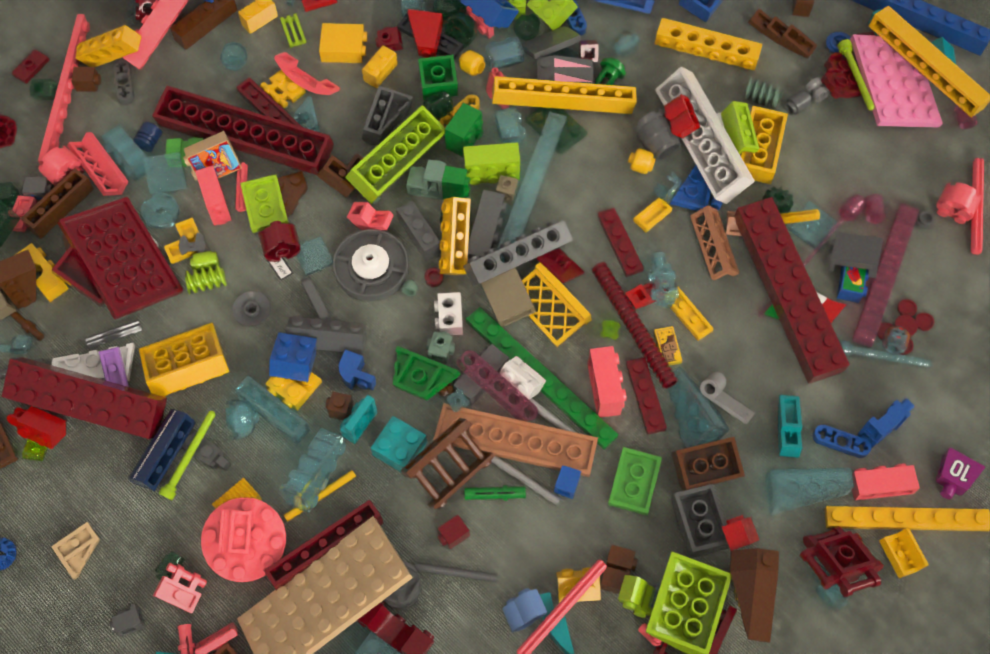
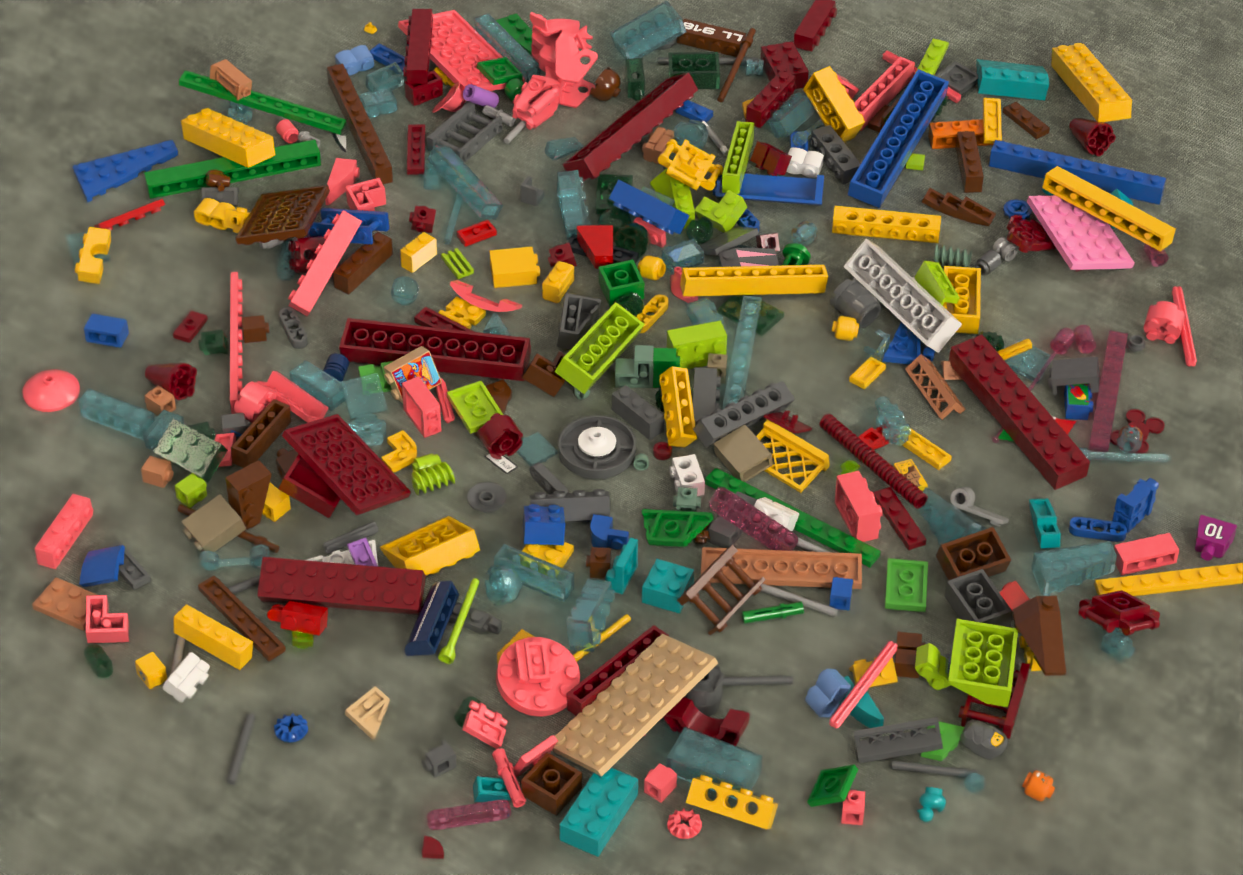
camera: 10 degrees left, 20 degrees down
(108, 46) = (277, 292): yellow brick -> none
(186, 246) = (416, 451): dark grey piece -> none
(366, 217) = (579, 405): coral brick -> none
(451, 399) = (710, 540): clear light blue plate -> none
(453, 532) = (740, 647): dark red brick -> none
(463, 129) = (660, 318): green brick -> none
(620, 242) = (841, 399): dark red plate -> none
(654, 641) = (955, 702): coral arm -> none
(681, 116) = (876, 280): red brick -> none
(845, 47) = (1024, 209): lime piece -> none
(903, 553) = (1177, 604): yellow bracket -> none

